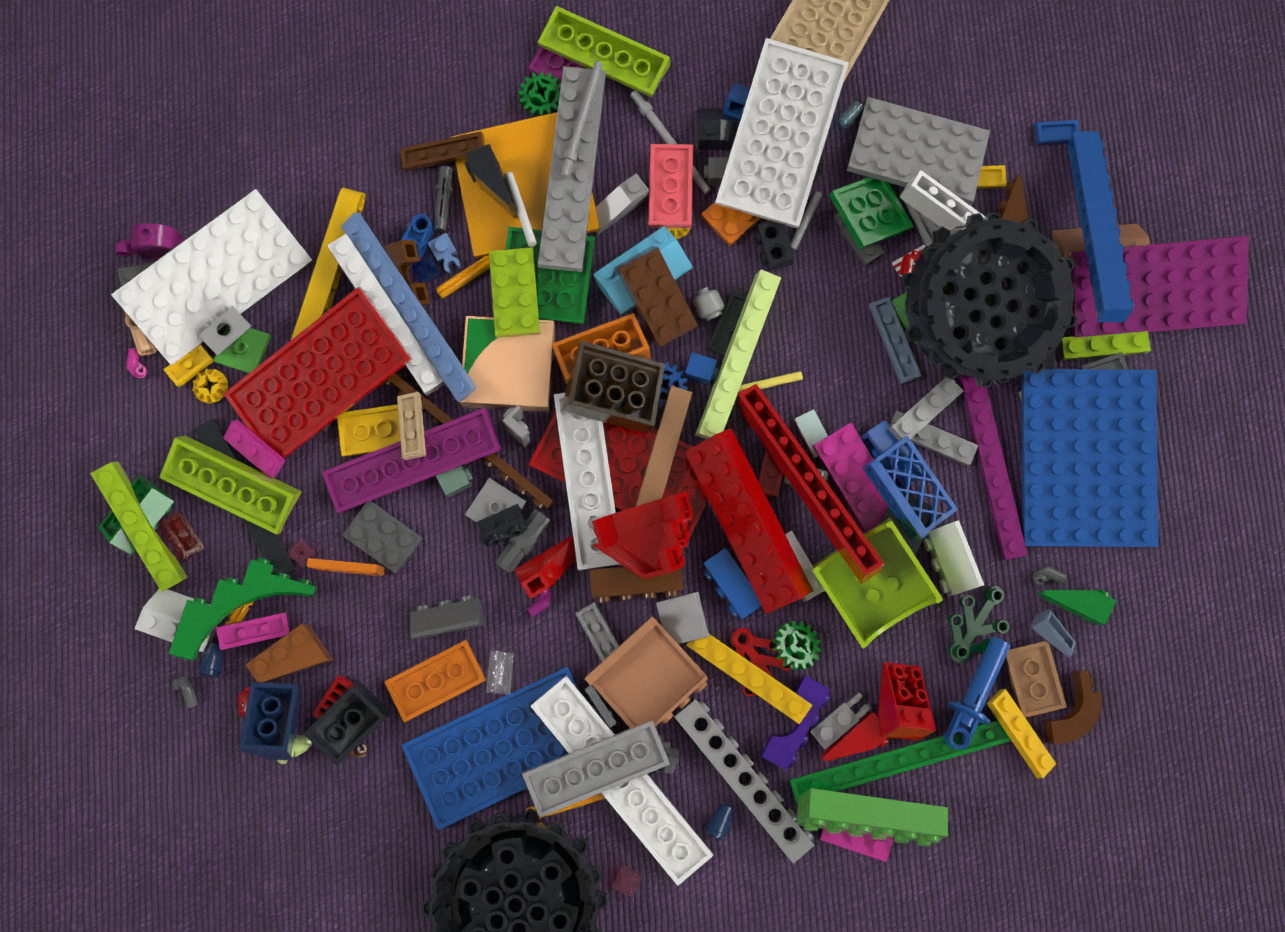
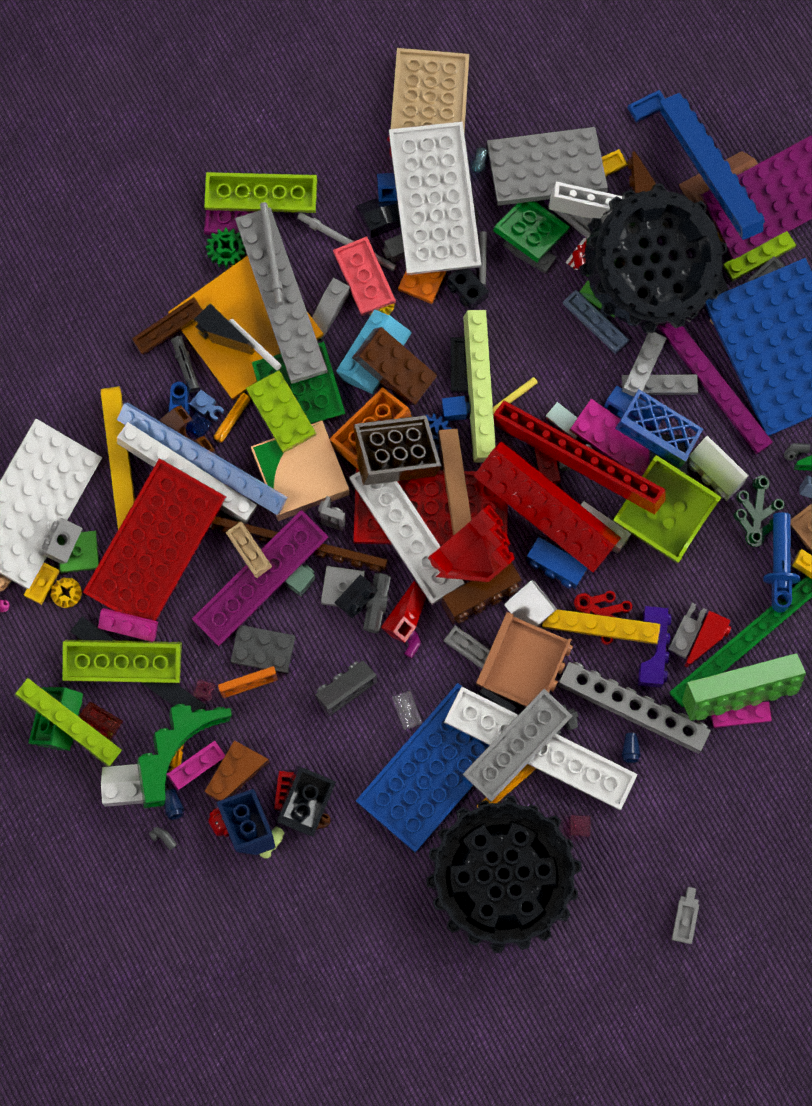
camera: 25 degrees left, 5 degrees down
(368, 430) = (214, 569): yellow plate -> none
(435, 681) = (358, 740): orange plate -> none
(708, 304) = (436, 356): light grey head -> none
(805, 653) = (628, 587): green gear -> none
(904, 703) = (730, 594): red slope -> none

